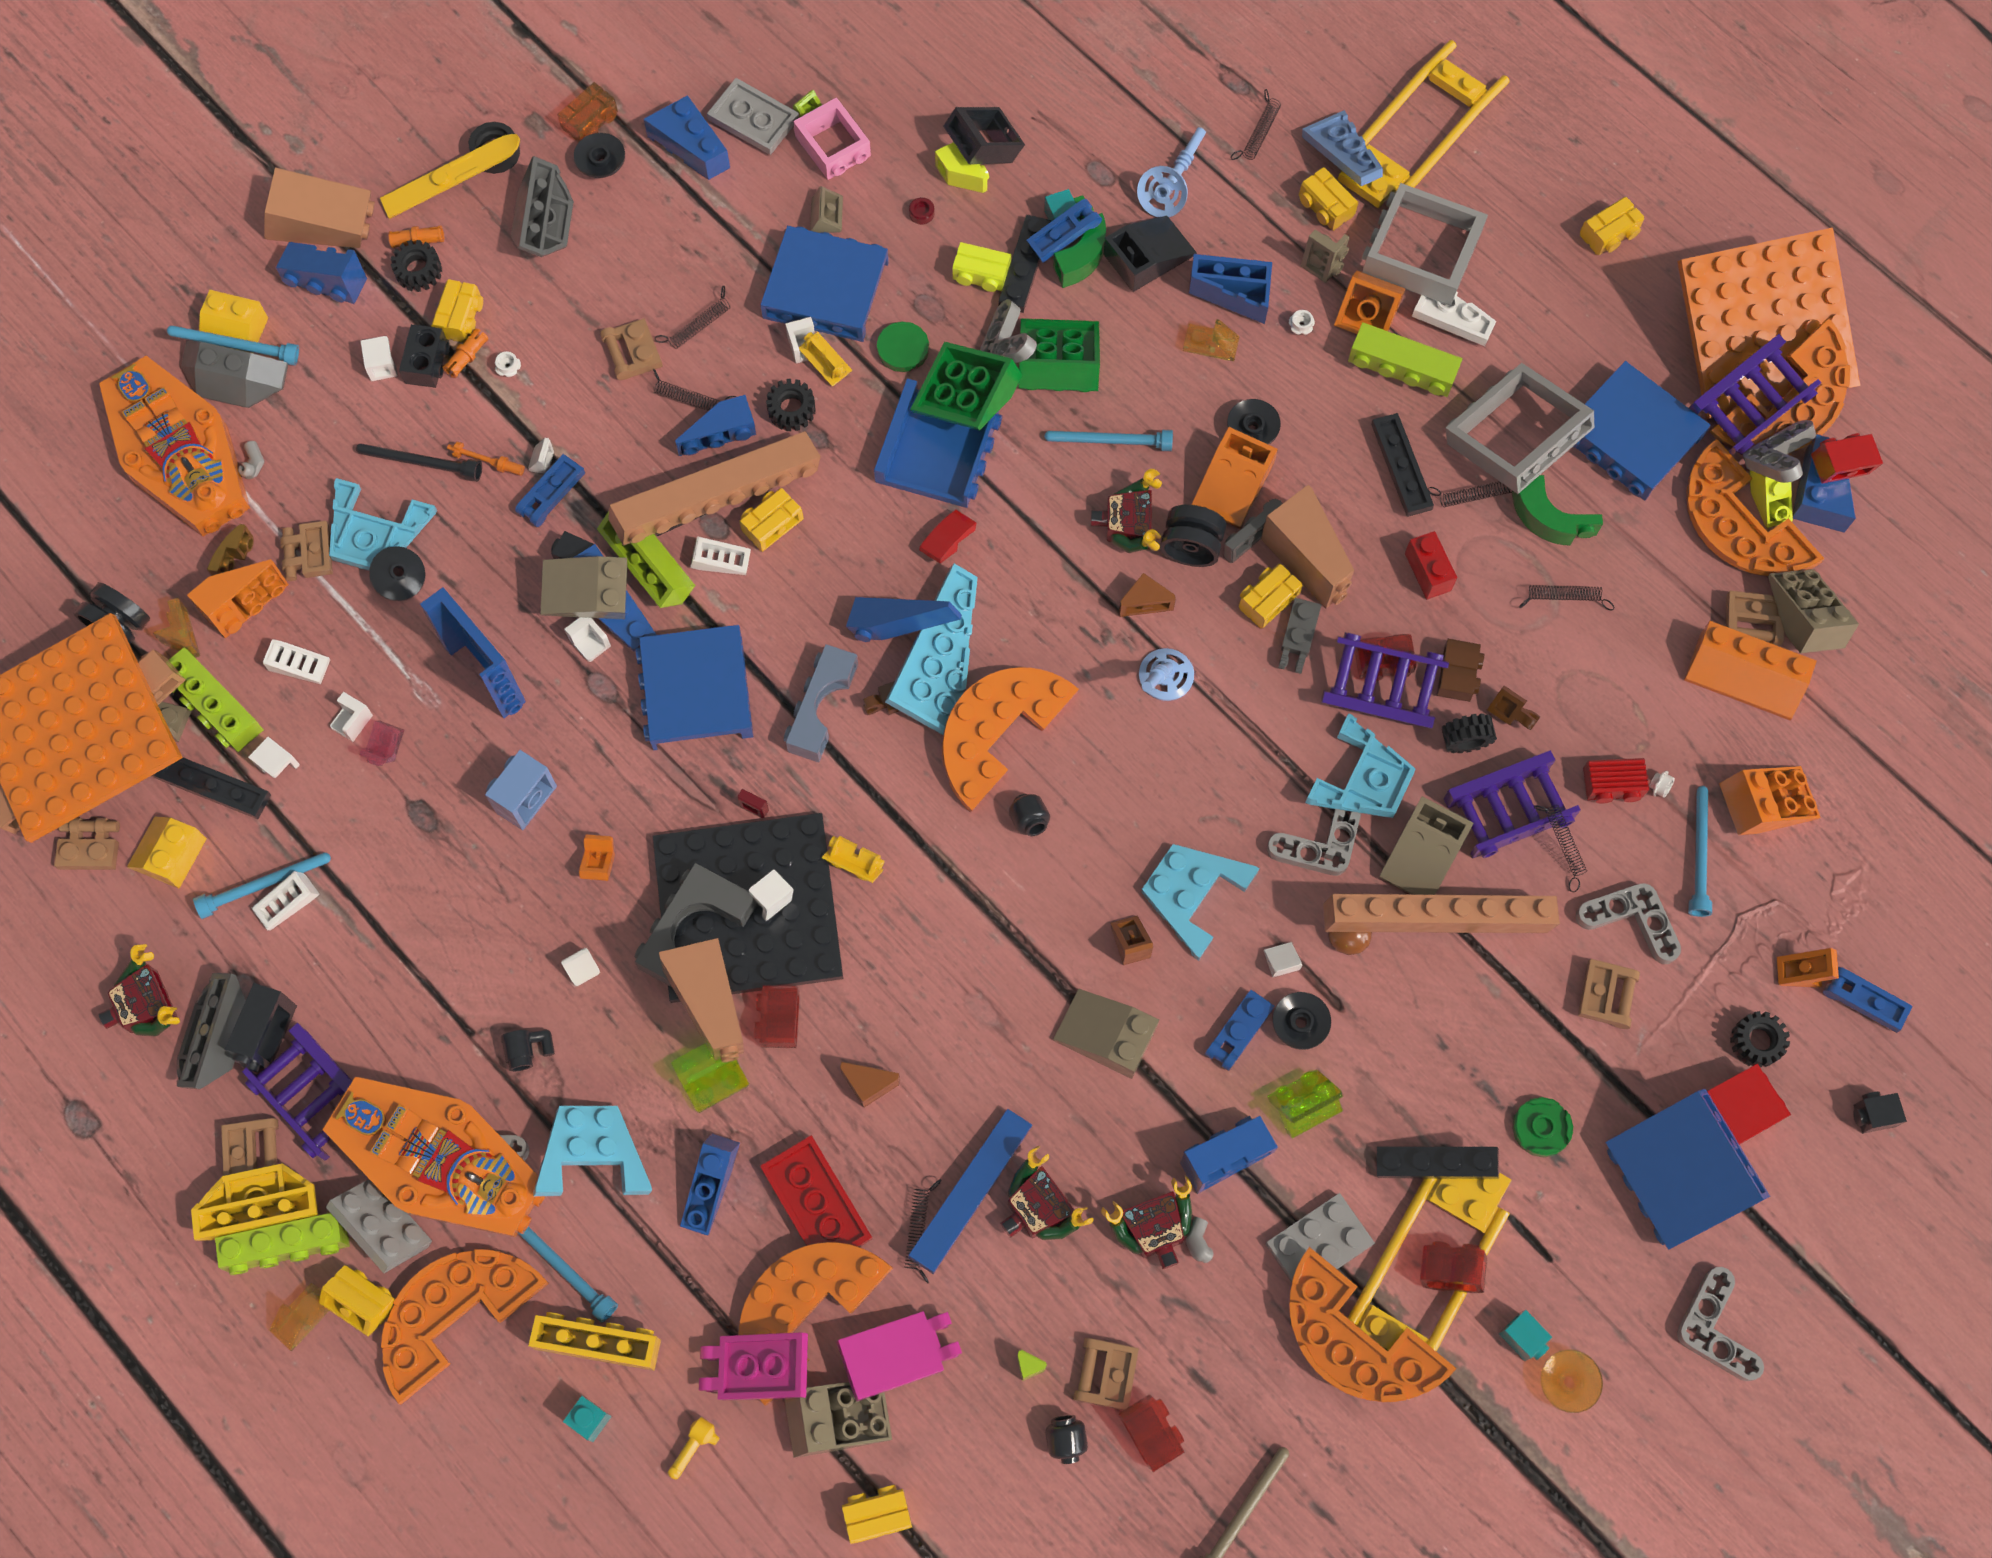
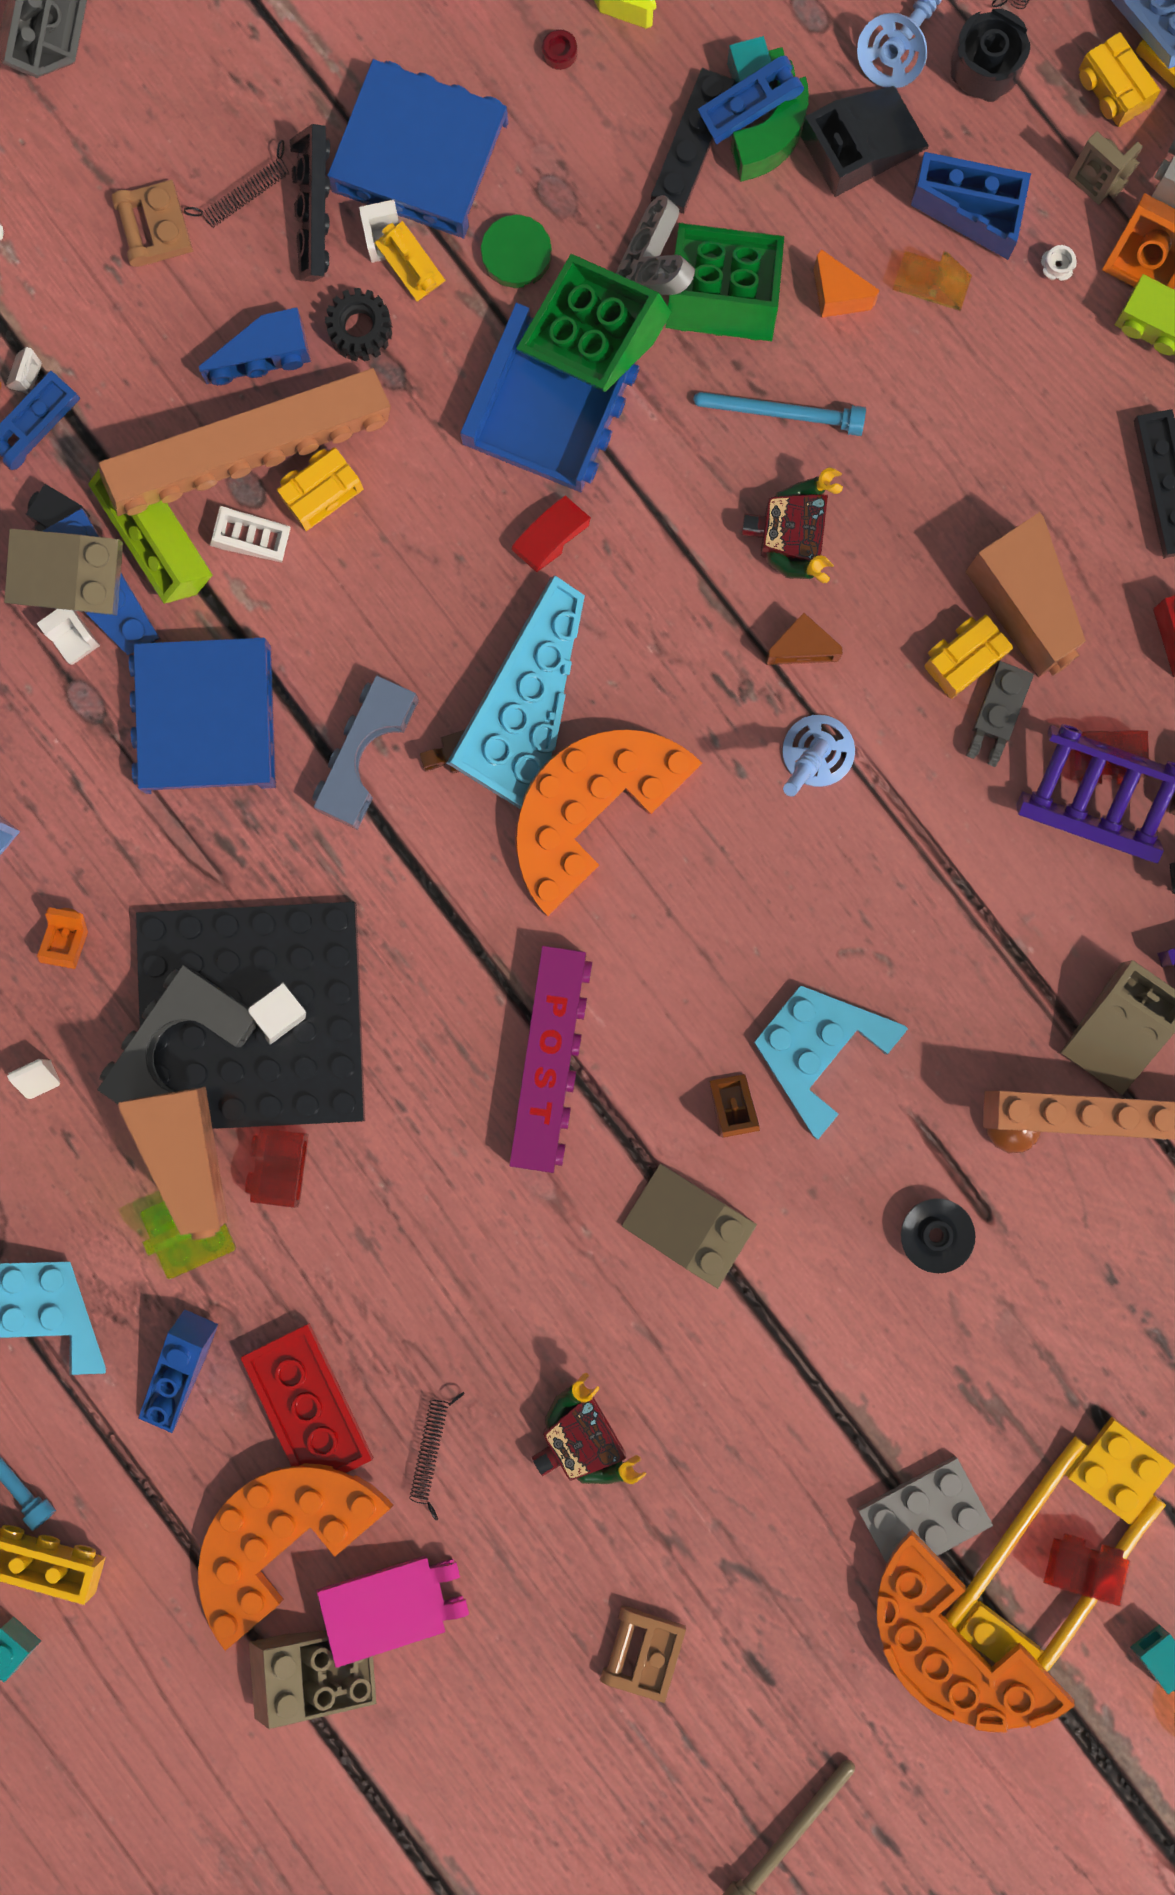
camera: 10 degrees right, 15 degrees up
(658, 379) = (186, 272): black piece -> none
(700, 1433) = (146, 1676): yellow piece -> none
(750, 312) = (310, 174): none -> black wing
(753, 803) = (266, 882): dark red tile -> none
(758, 1366) = (217, 1614): dark pink tile -> none
(826, 211) = (429, 40): dark tan slope -> none
(842, 854) = (398, 977): yellow hinge -> none
(869, 1082) = (382, 1263): dark orange slope -> none
(876, 1515) = (348, 1797): yellow brick -> none
(895, 617) = (466, 647): blue slope -> none
(970, 1191) = (498, 1413): blue tile -> none
(981, 267) = (632, 142): neon yellow brick -> none
(983, 916) = (548, 1059): none -> magenta brick
(1029, 814) = (620, 930): black head -> none
(1030, 1365) = (551, 1636): lime slope -> none
(1066, 1438) = (586, 1729): black head -> none
(1145, 352) = (841, 289): none -> orange slope
(1152, 1433) = (690, 1734): clear red brick -> none
(1154, 1224) = (722, 1479): torso -> none
(1193, 535) = (876, 565): black wheel -> none
(1196, 1242) = (771, 1502): light grey arm -> none
(1227, 1153) = (824, 1398): blue wedge -> none
(1233, 189) = (990, 54): none -> black brick
(1235, 476) = (941, 484): orange slope -> none
(1240, 1029) = (858, 1236): blue plate -> none
(1252, 532) = (957, 560): dark grey hinge -> none
(1258, 414) = (978, 391): black dish -> none
(1282, 959) = (923, 1150): white slope -> none
(1306, 1102) = (929, 1339): clear neon green bracket -> none
(1331, 848) = (1005, 1007): light grey beam -> none
(1376, 781) = (1075, 925): medium azure wing -> none
(1438, 1162) = (1086, 1437): black plate -> none

